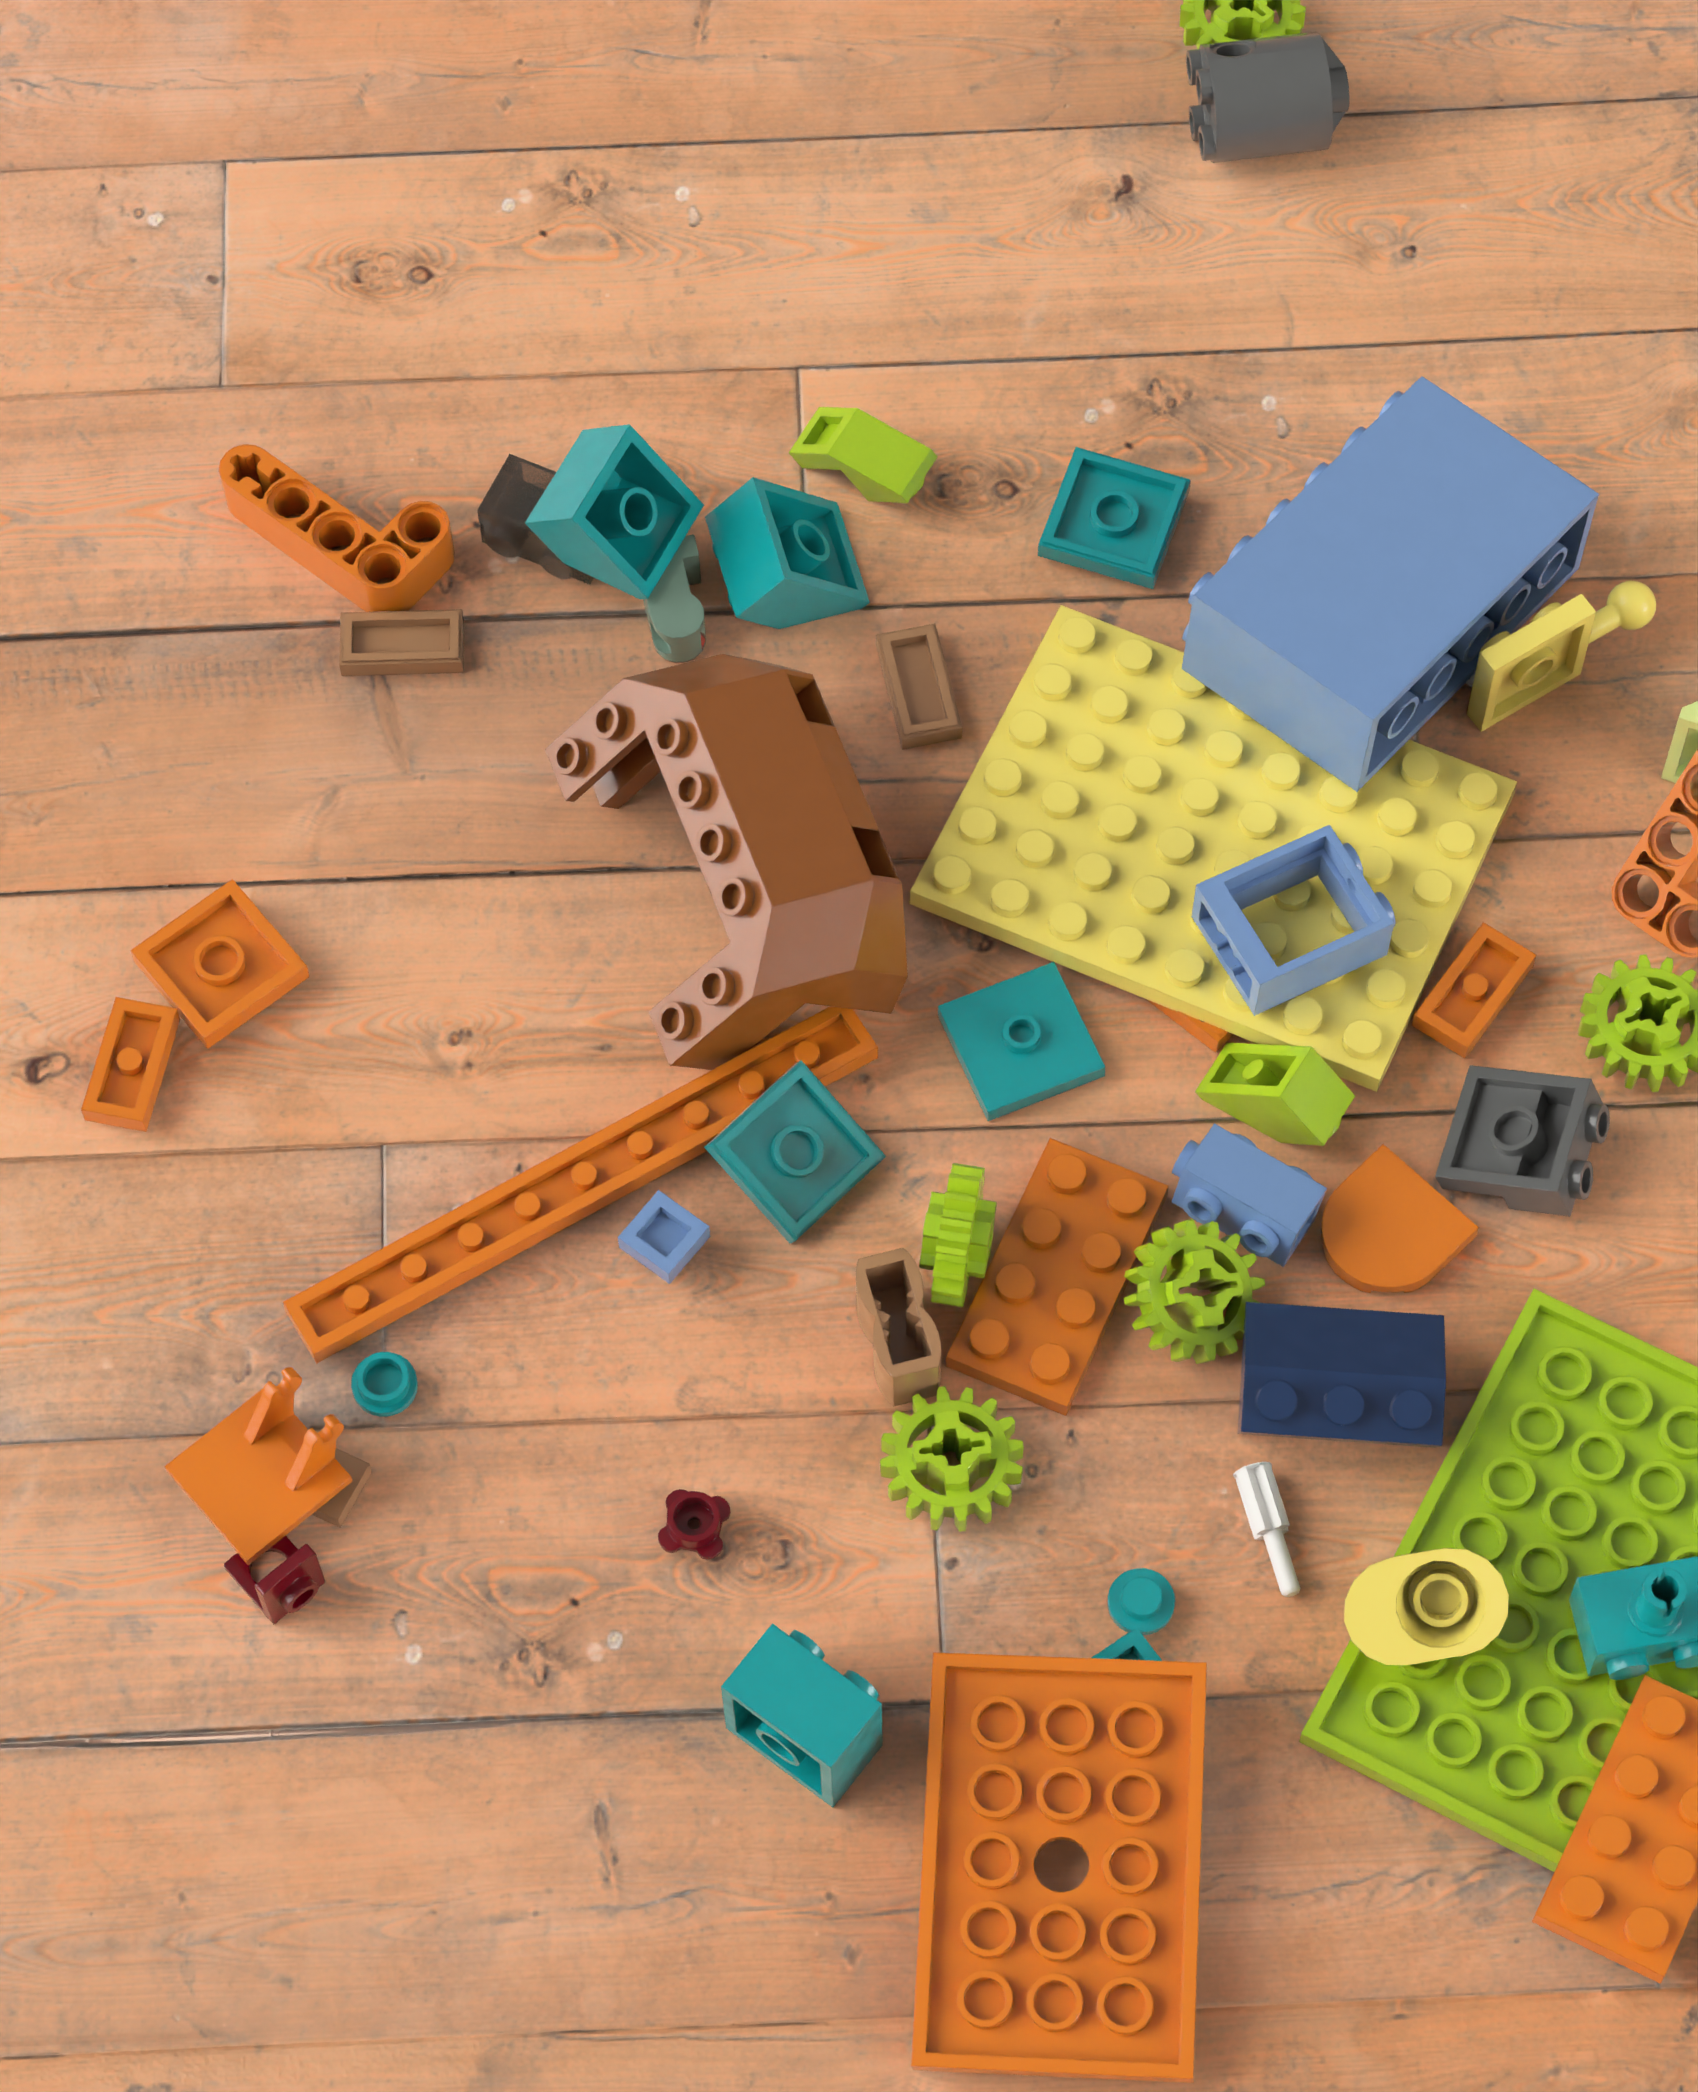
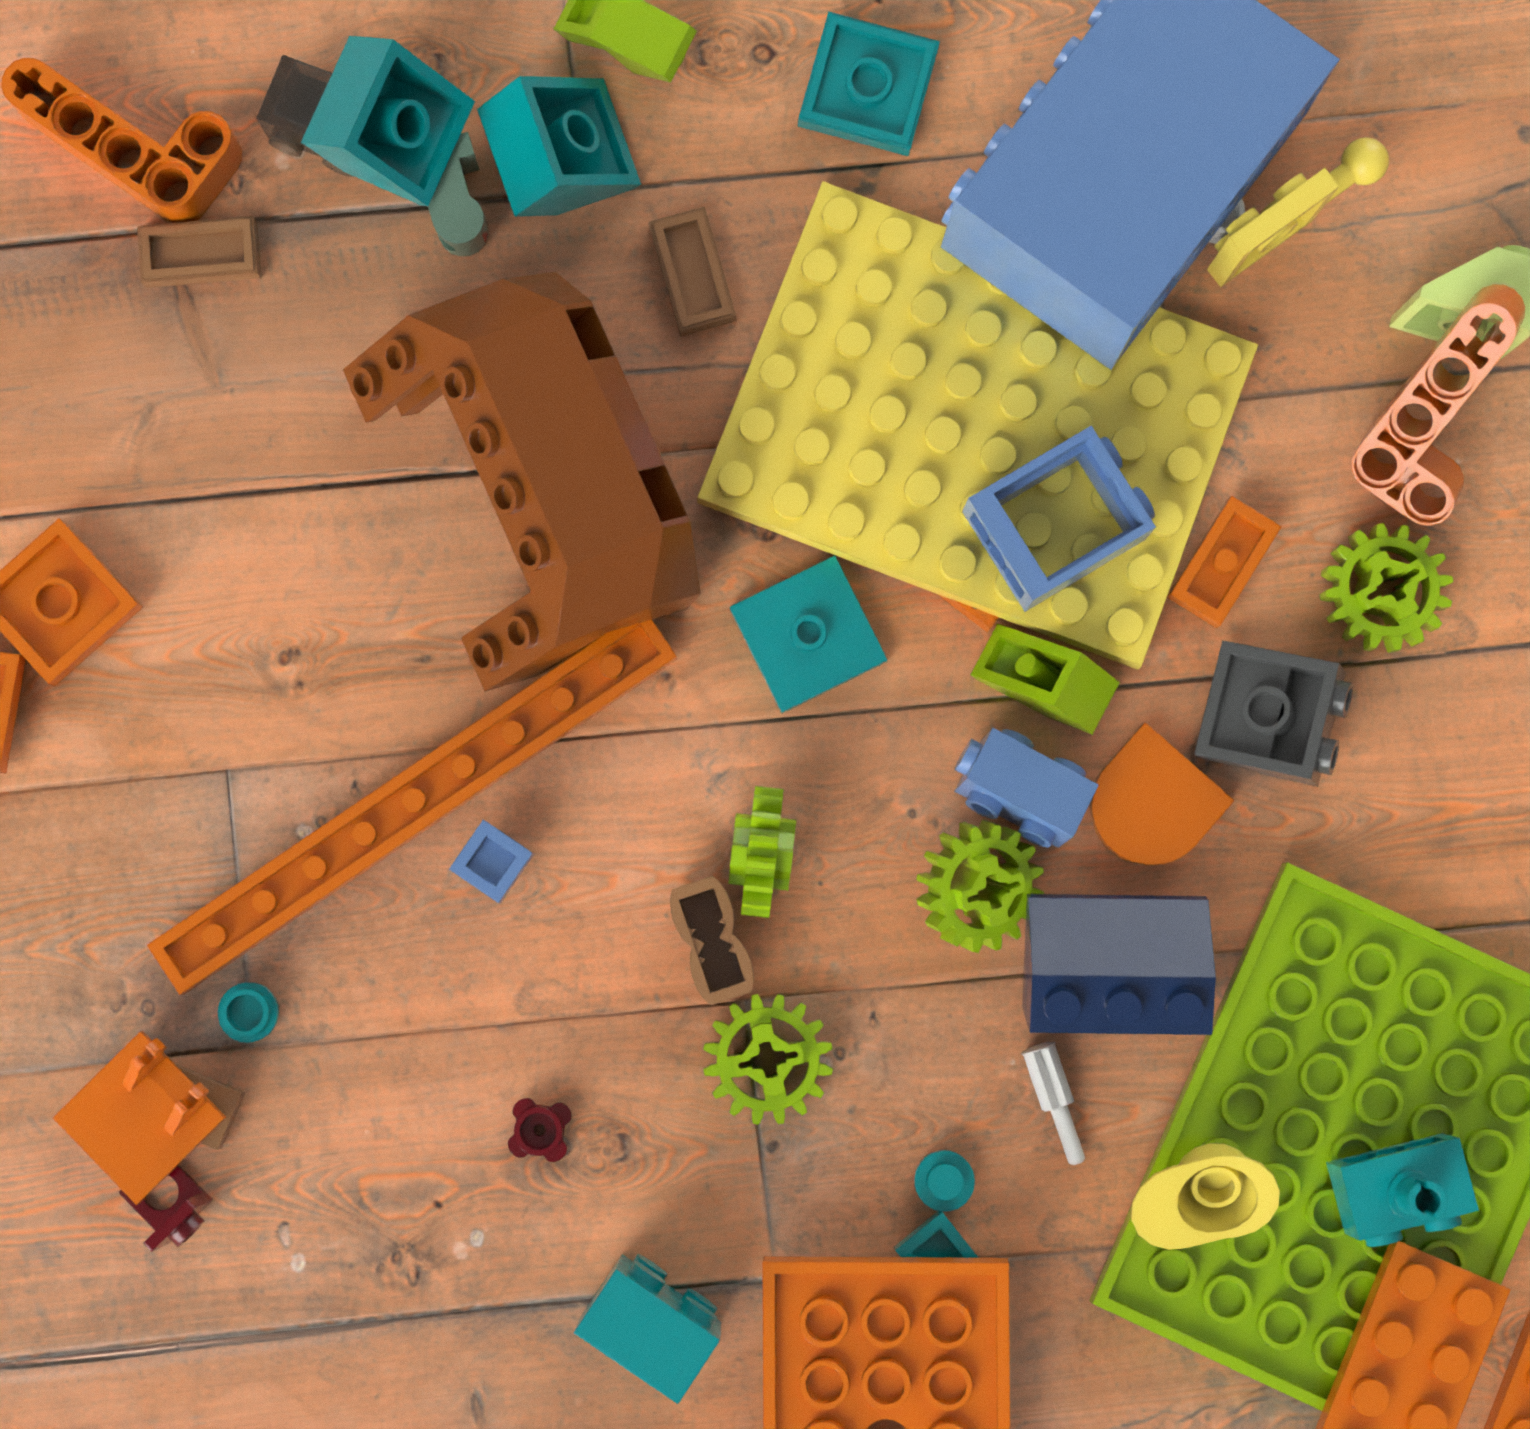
camera: 10 degrees left, 20 degrees up
(795, 1152) = (606, 765): teal plate -> none
(1057, 1276) = (854, 866): orange plate -> none

